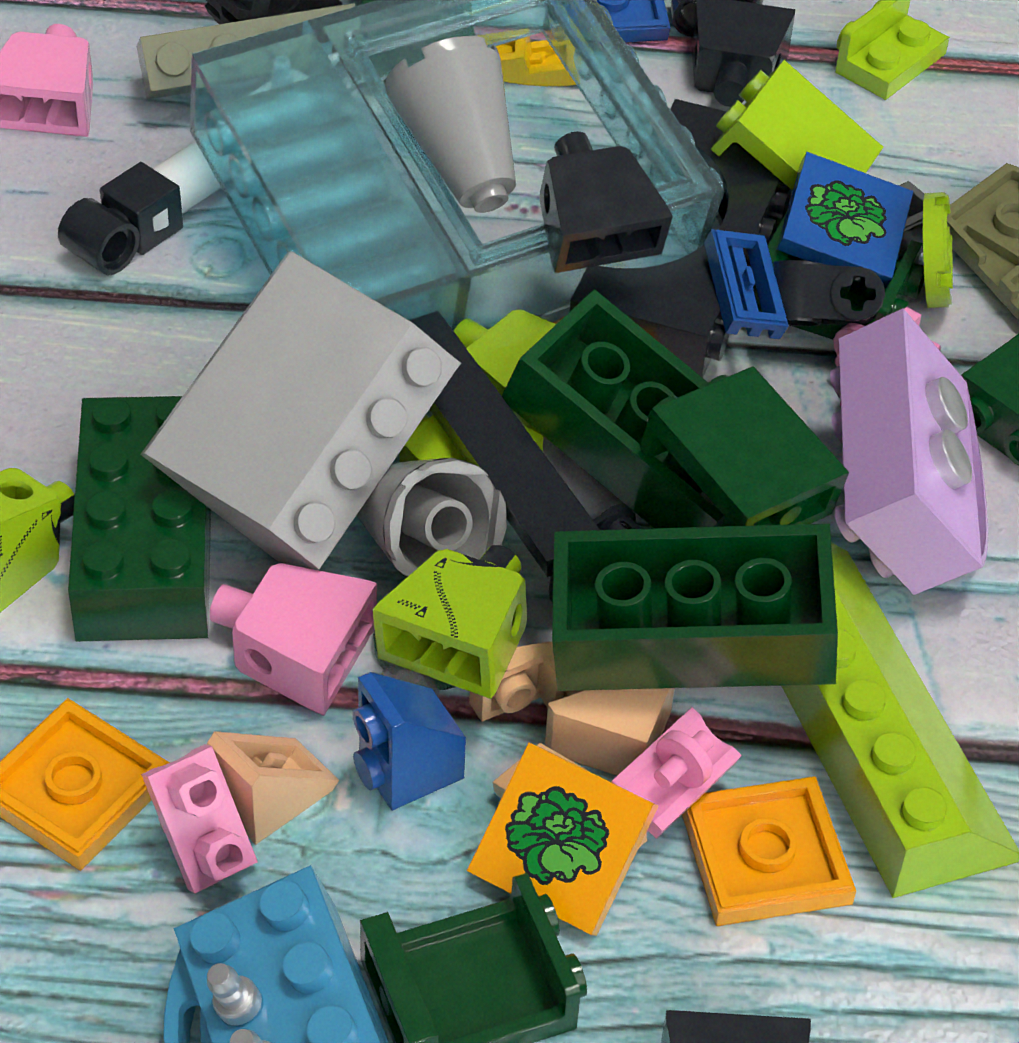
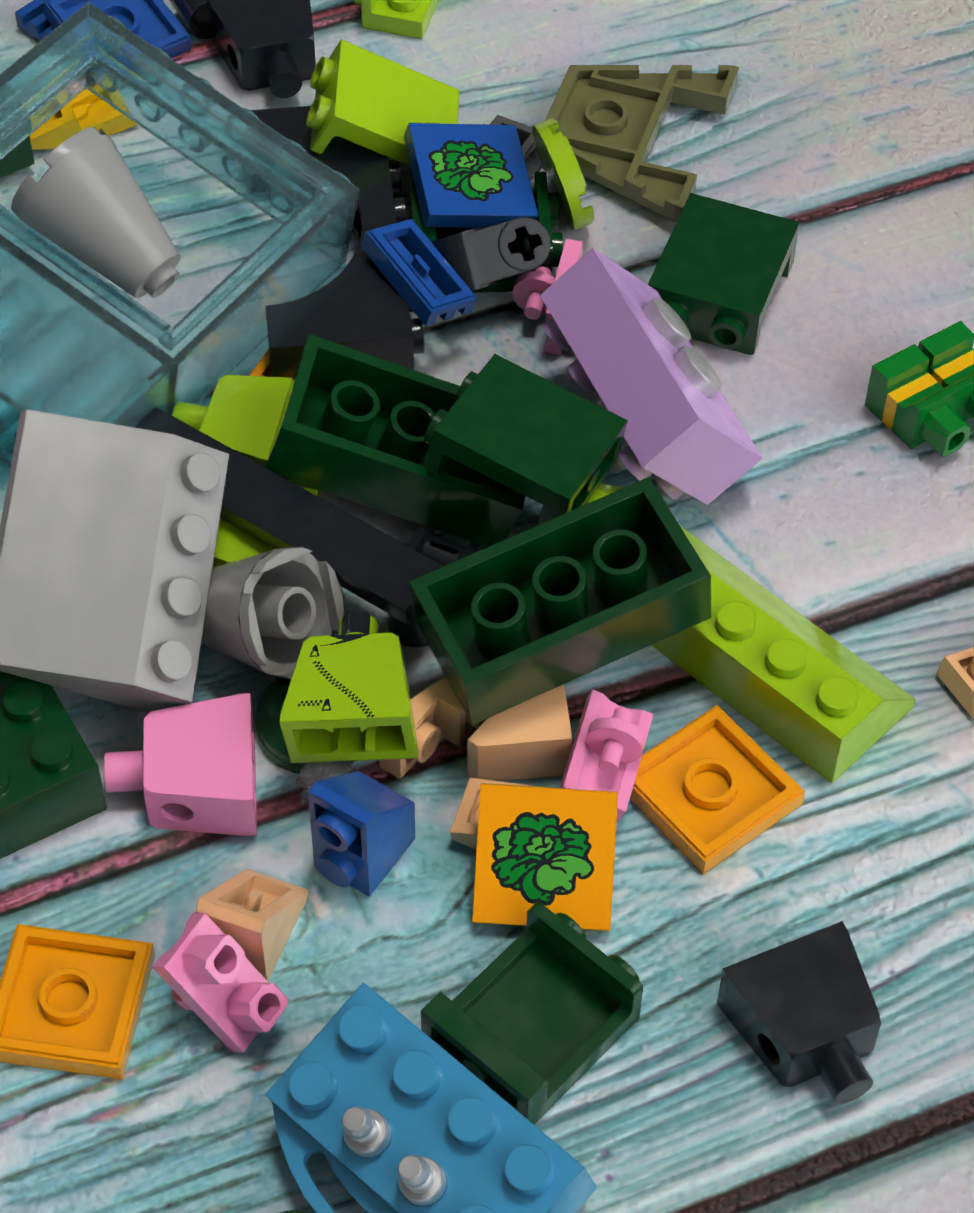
camera: 25 degrees left, 5 degrees up
(599, 206) = (265, 250): black torso -> none

